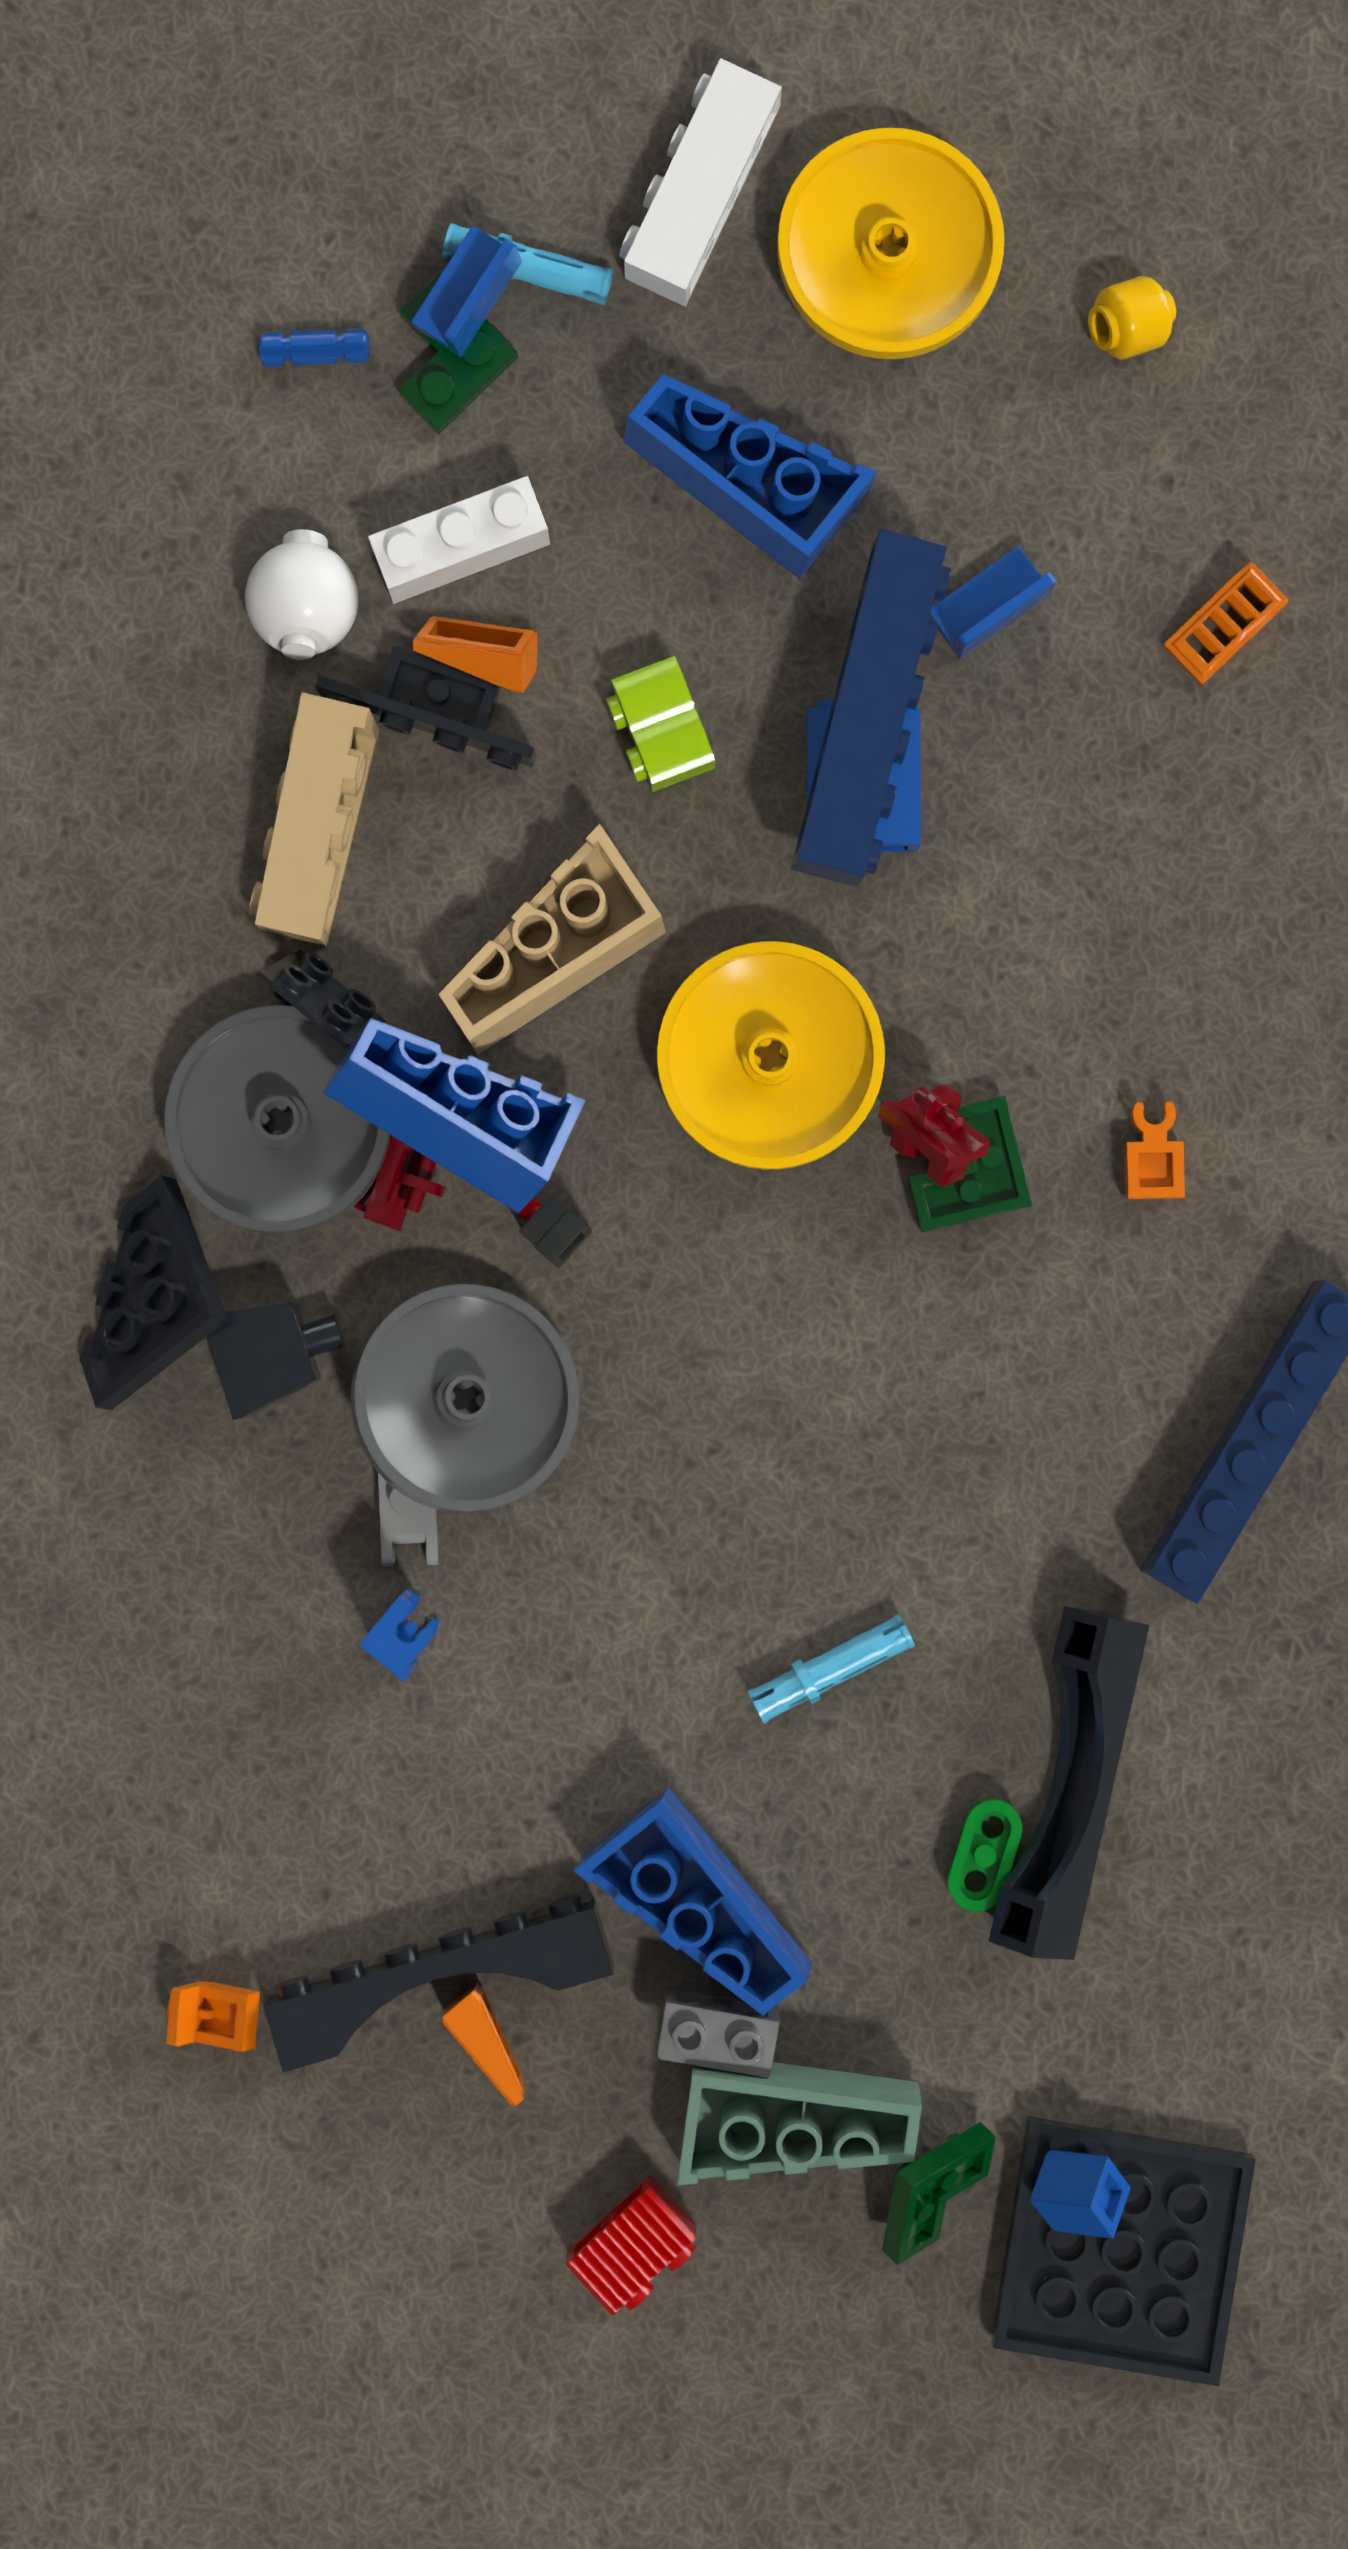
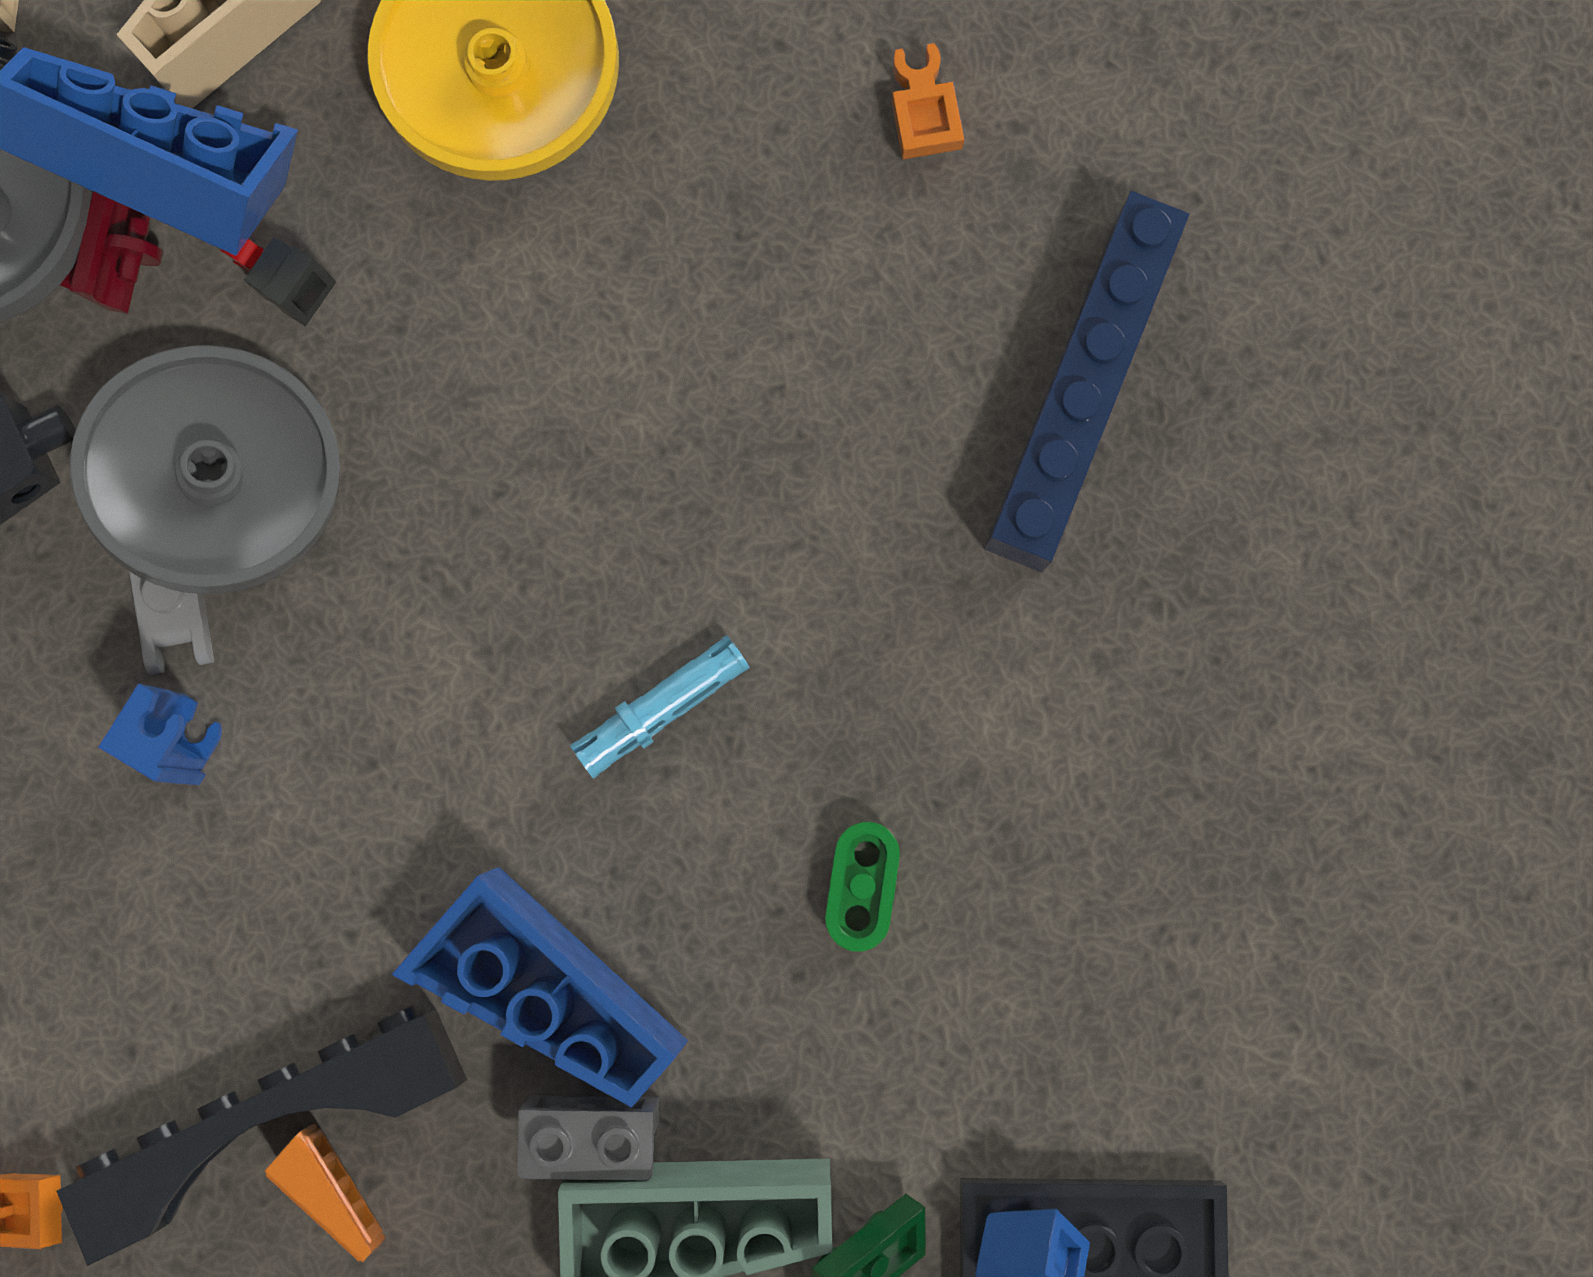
camera: 10 degrees left, 5 degrees down
(931, 1126) = (680, 105): dark red hips -> none
(990, 1183) = (745, 162): dark green plate -> none
(1049, 1887) = (940, 911): black arch -> none

